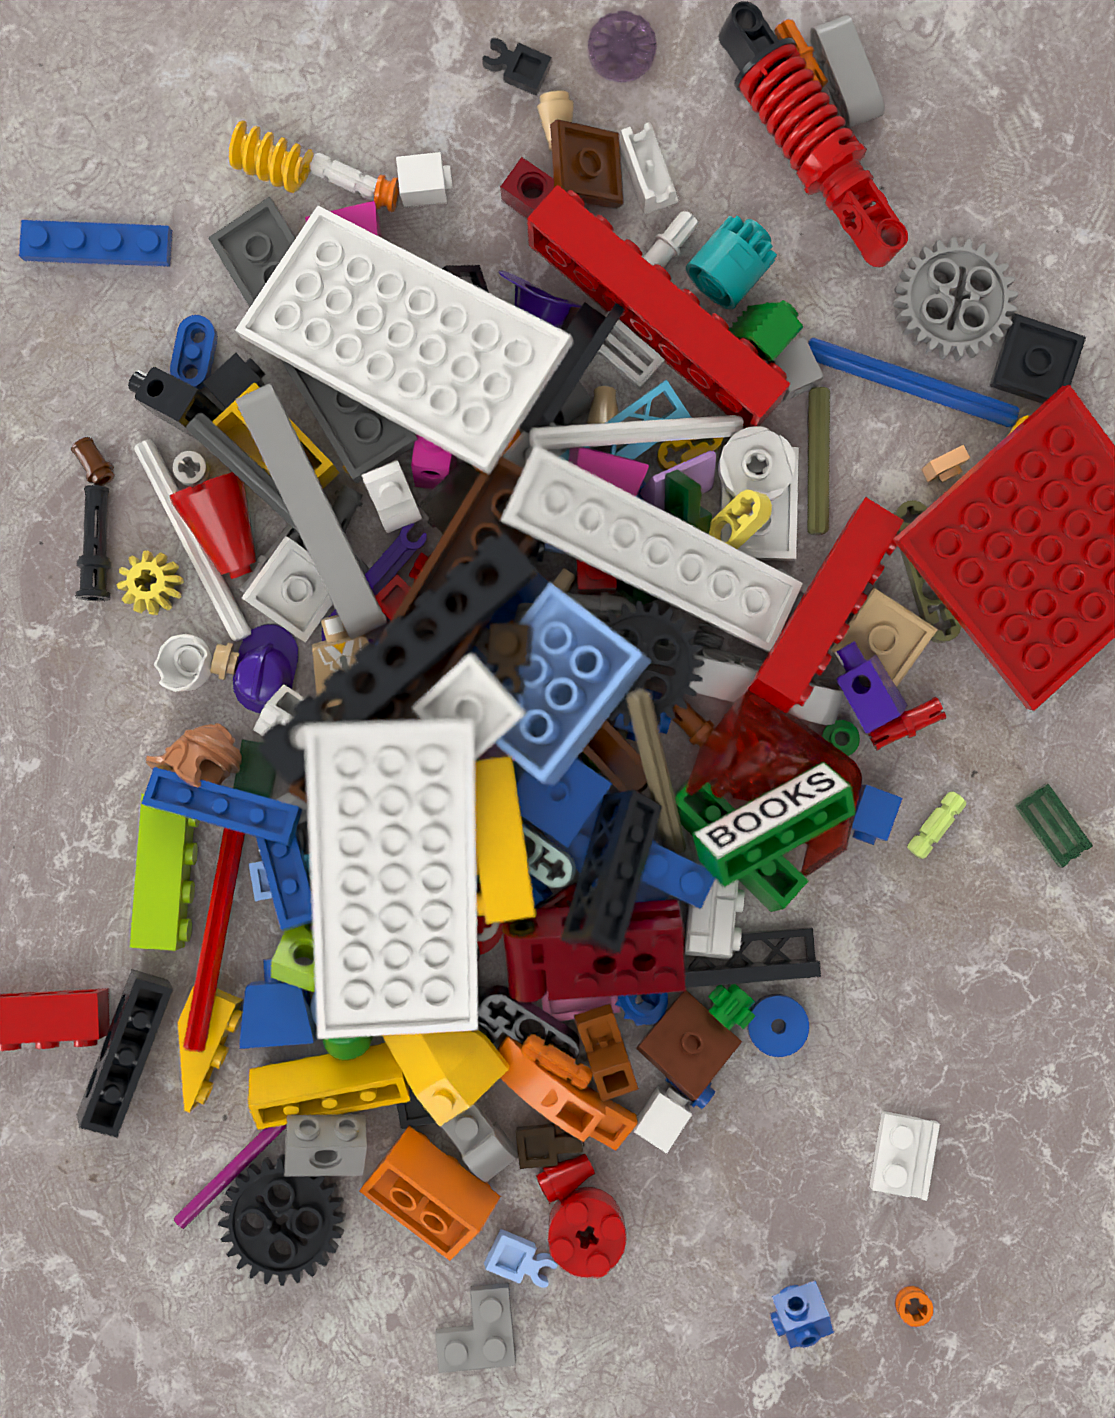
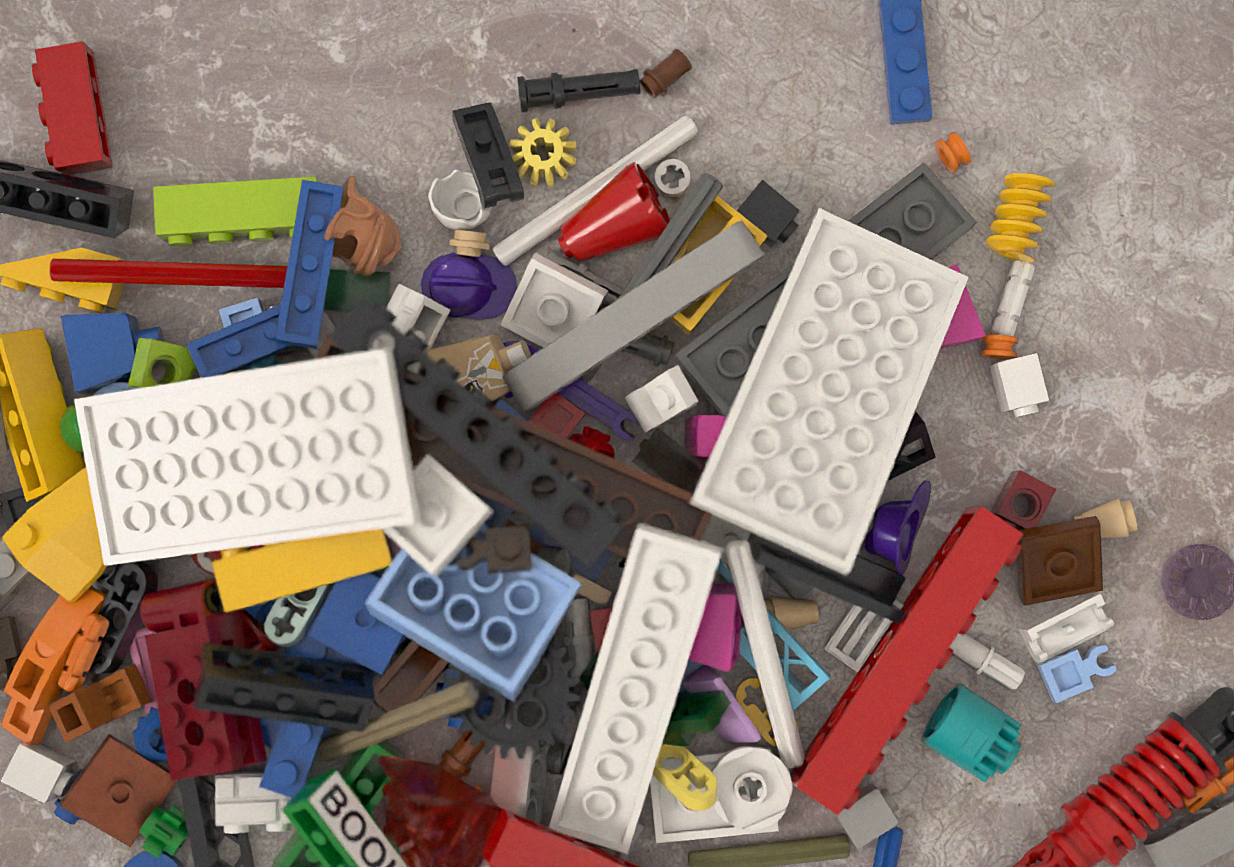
camera: 75 degrees right, 0 degrees up
(144, 632) = (487, 154): none -> black plate
(171, 398) = (740, 150): black torso -> none
(190, 354) = (796, 164): blue plate -> none
(202, 210) = (953, 152): none -> orange bush
(523, 67) = (1159, 477): black plate -> none
(689, 169) = (1069, 673): none -> light blue plate
(768, 327) = (900, 779): green brick -> none

